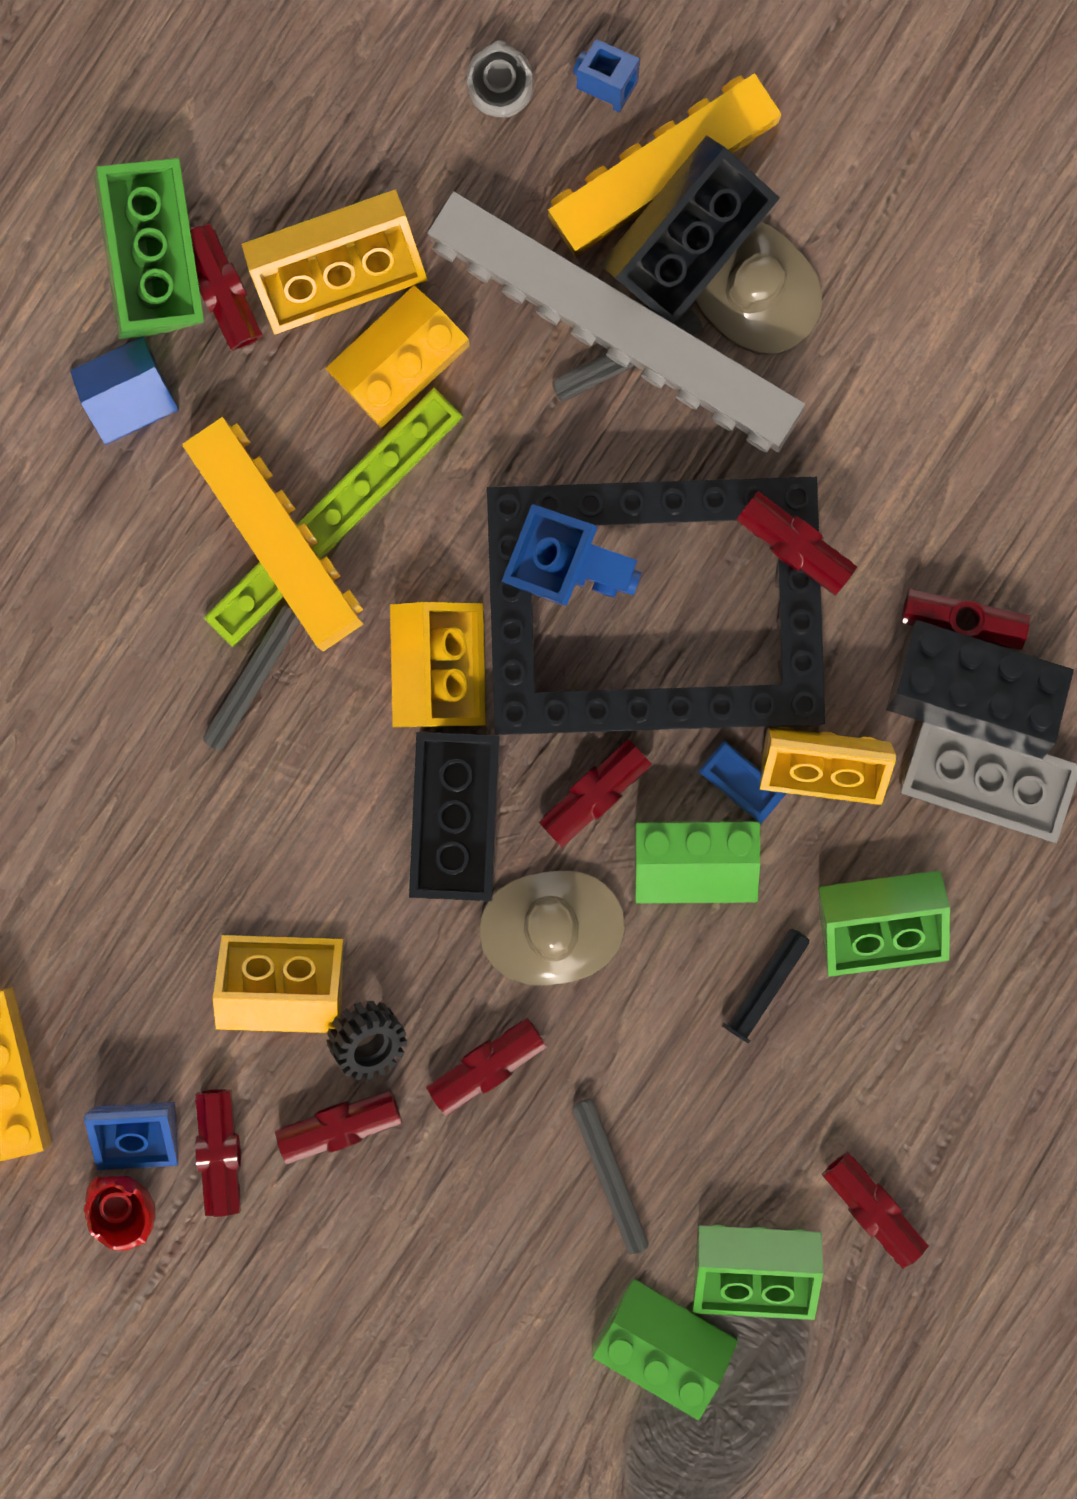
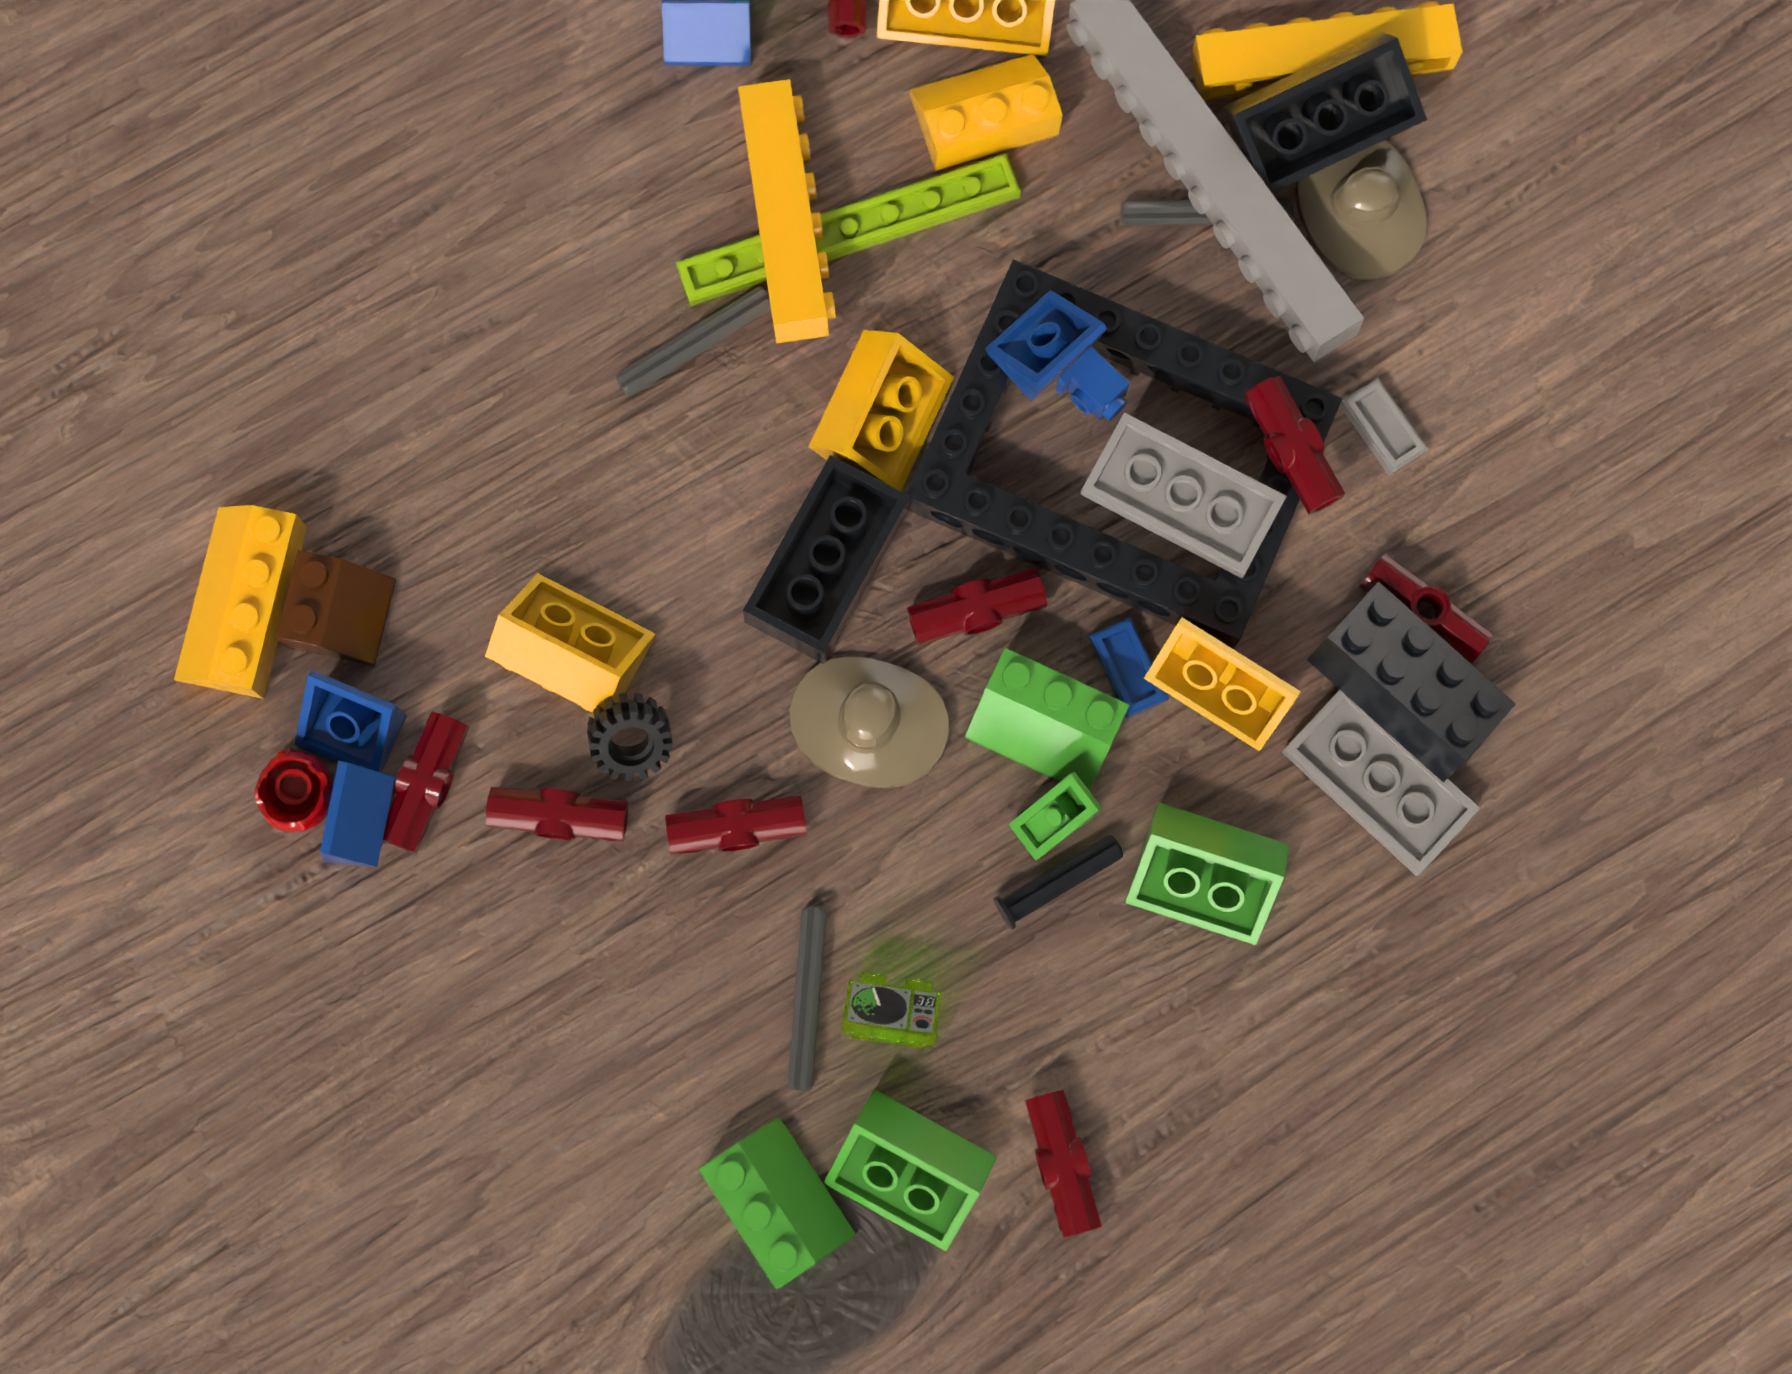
camera: 25 degrees right, 10 degrees down
(74, 1047) = (335, 608): none -> reddish brown slope
(181, 1209) = (356, 816): none -> blue slope
(684, 1160) = (890, 1012): none -> slope
(724, 629) = (1183, 495): none -> light grey plate
(740, 939) = (1055, 816): none -> bright green slope
(860, 474) = (1383, 427): none -> light grey tile

